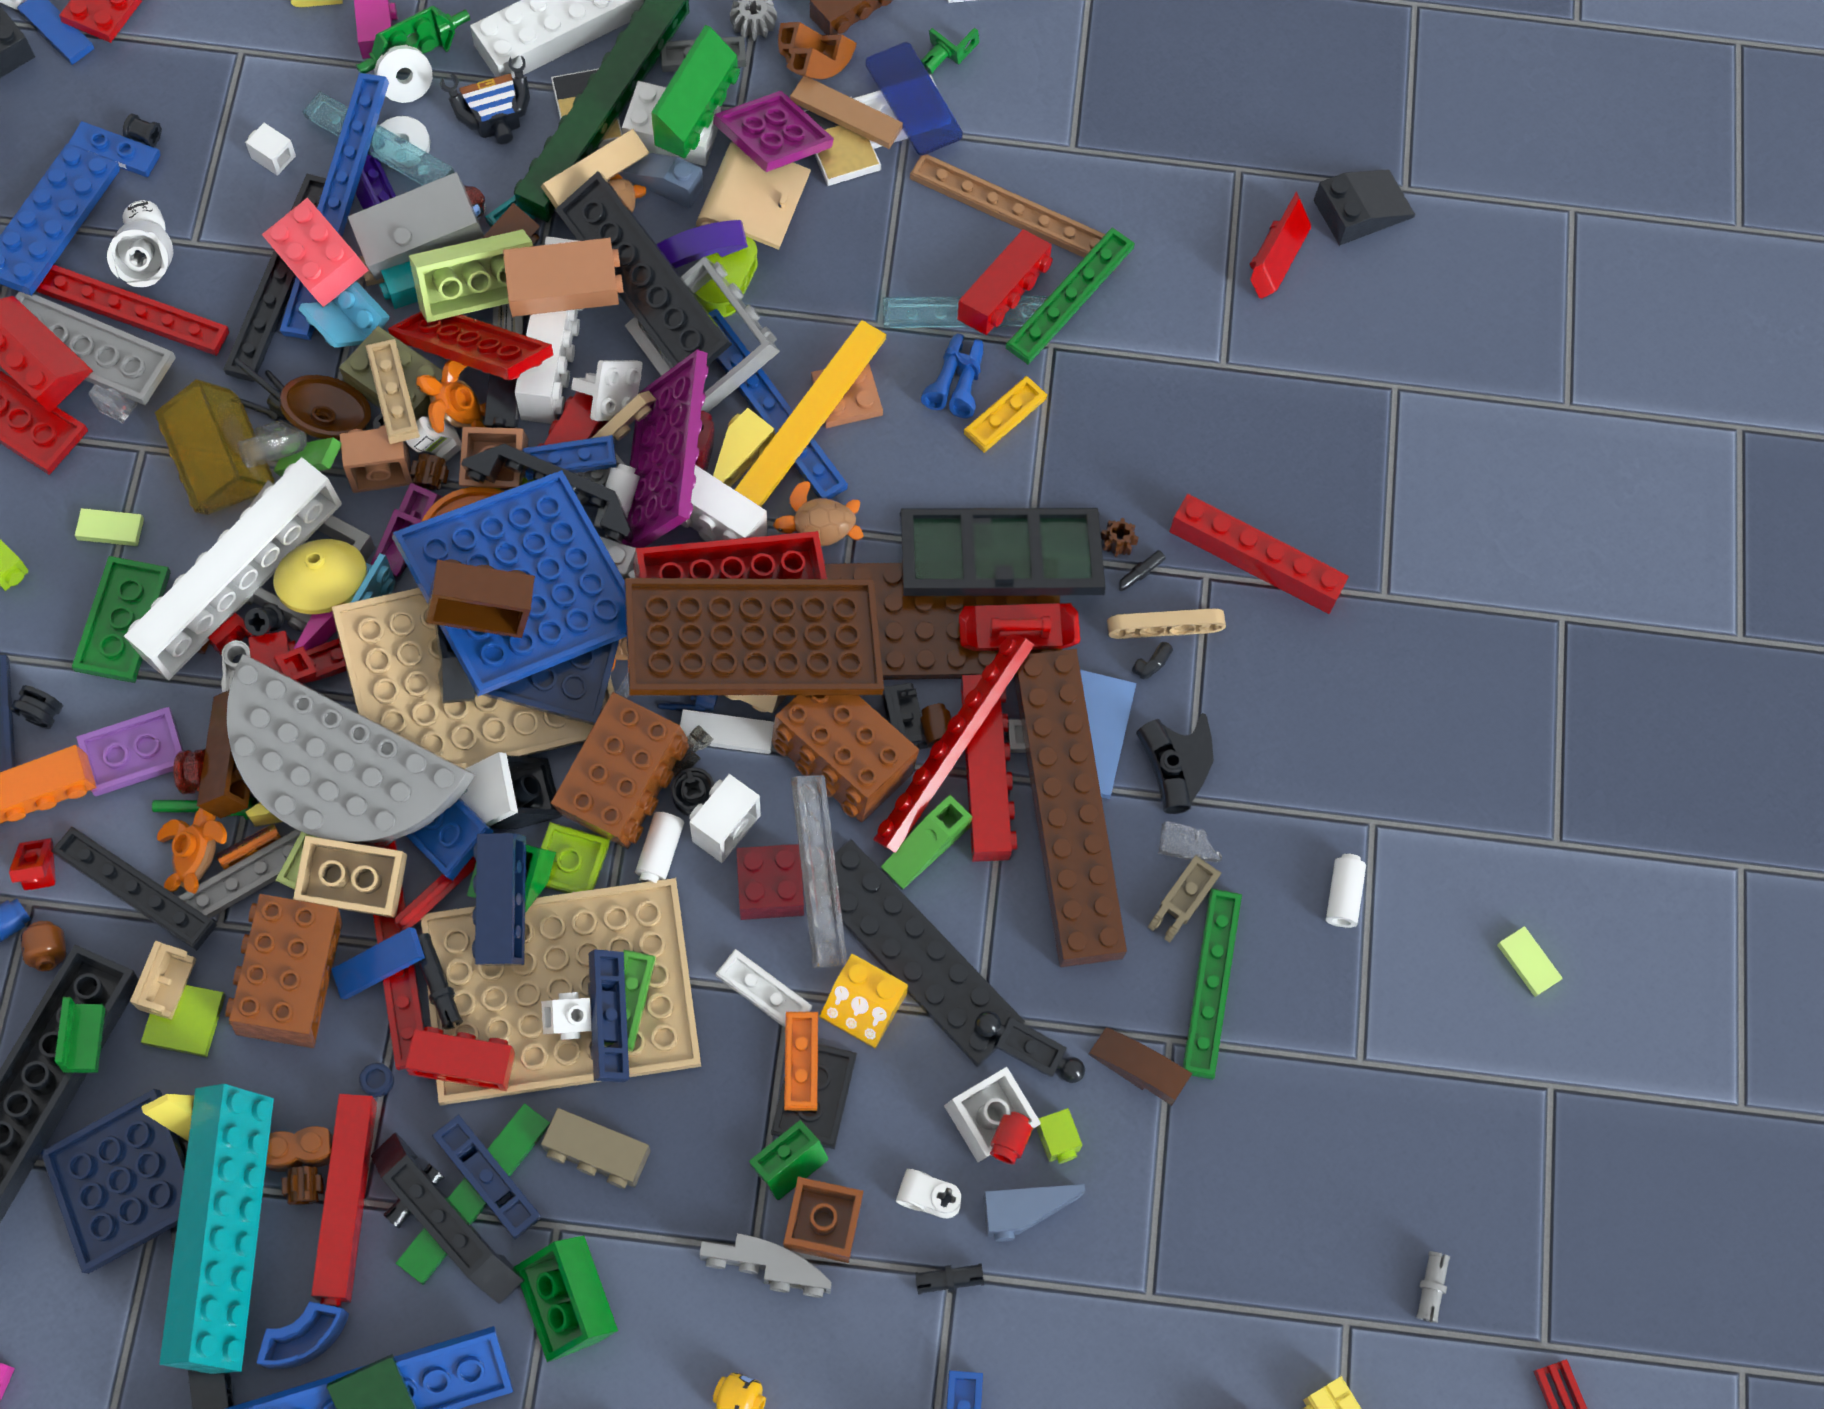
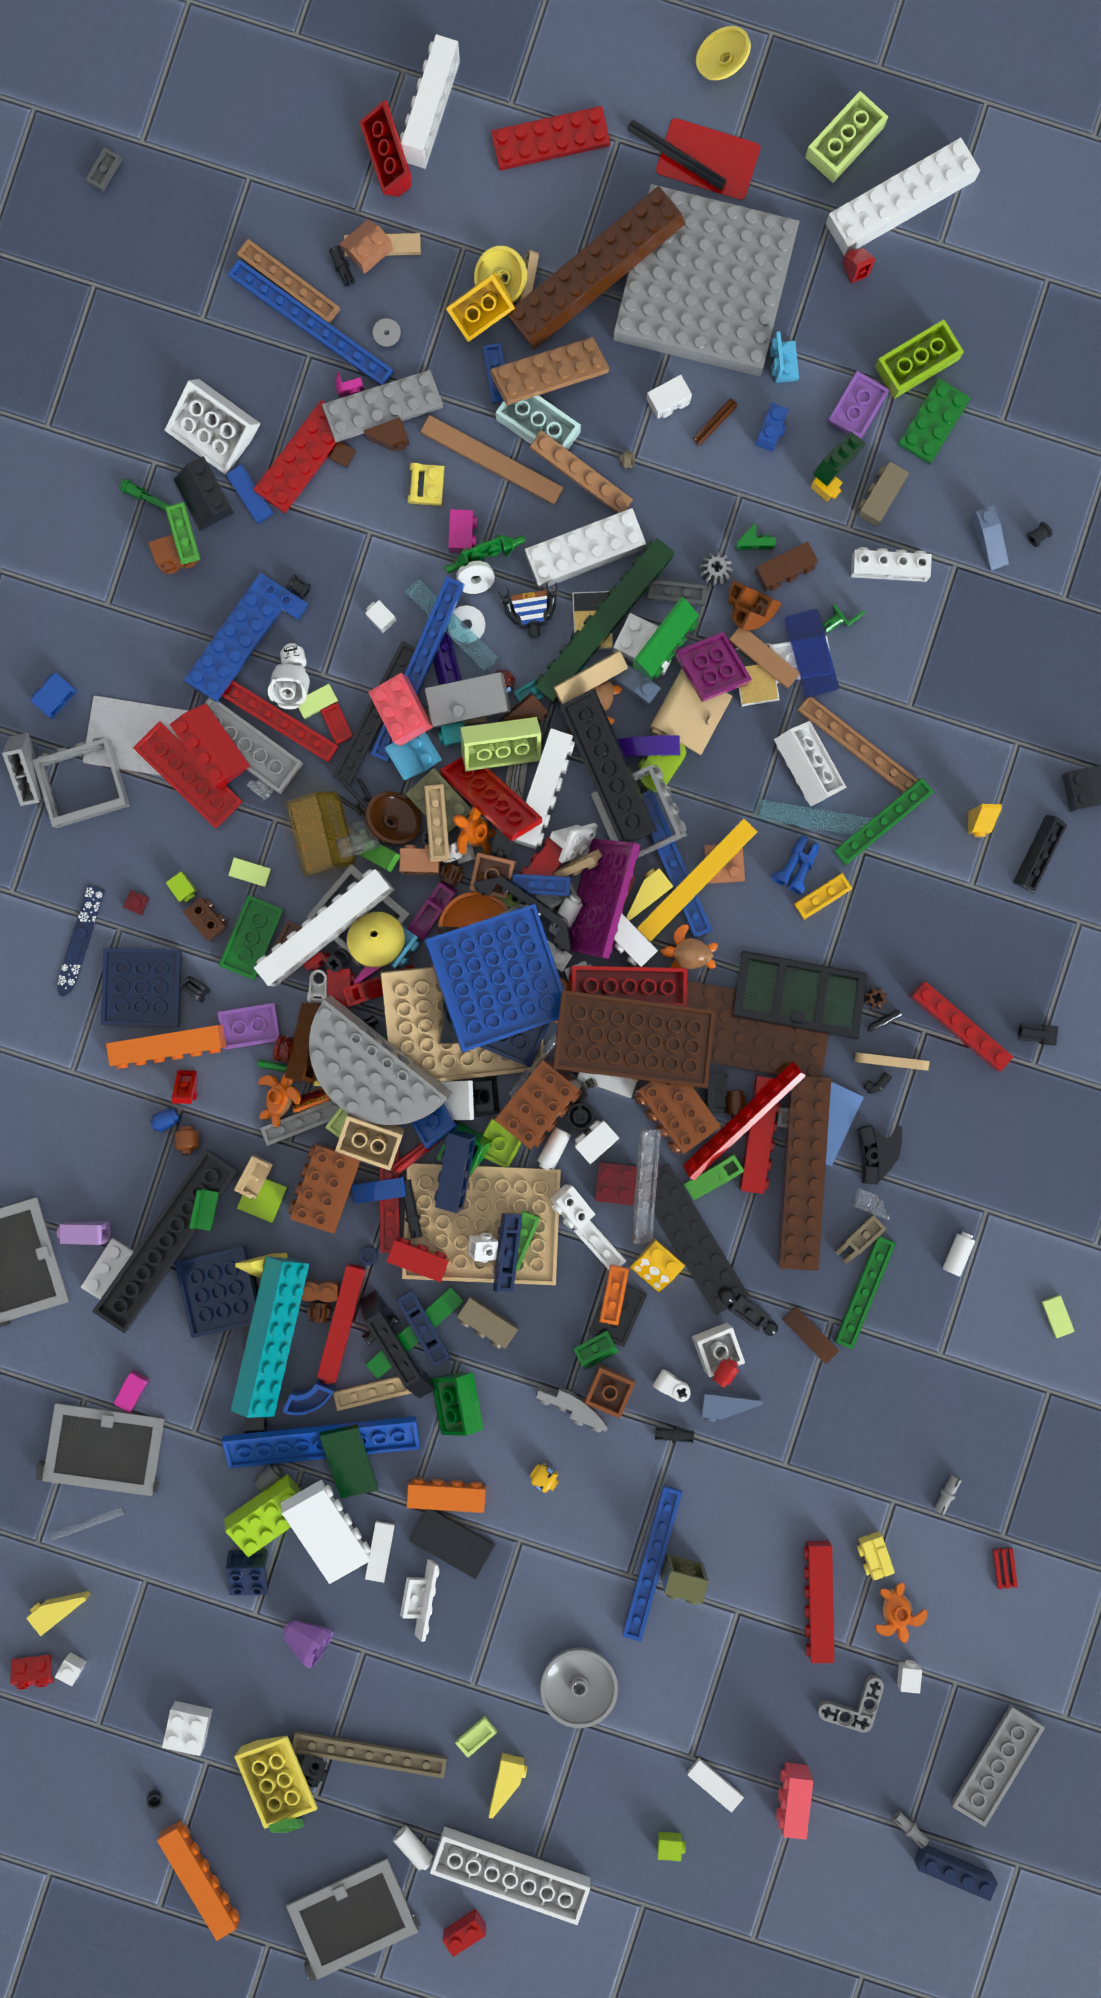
camera: 10 degrees right, 20 degrees up
(43, 603) = (206, 919): none -> reddish brown brick
(134, 888) = (242, 1115): black tile -> none
(188, 276) = (317, 701): none -> yellowish green tile
(222, 300) = (337, 723): none -> red tile
(412, 1312) = (369, 1393): none -> tan tile
(480, 598) = (472, 997): reddish brown piece -> none
(562, 277) = (557, 764): nougat brick -> none
(704, 930) = (571, 1207): none -> white brick
(940, 236) = (809, 763): none -> white slope
(1005, 282) = (842, 806): red brick -> none
(1042, 624) = (799, 1048): red piece -> none
(1059, 1136) = (754, 1367): lime brick -> none
(1214, 258) = (982, 819): none -> yellow slope
(1280, 248) = (1031, 813): red piece -> none
(1311, 304) = (1040, 853): none -> black slope
(1386, 544) = (1043, 1034): none -> black piece

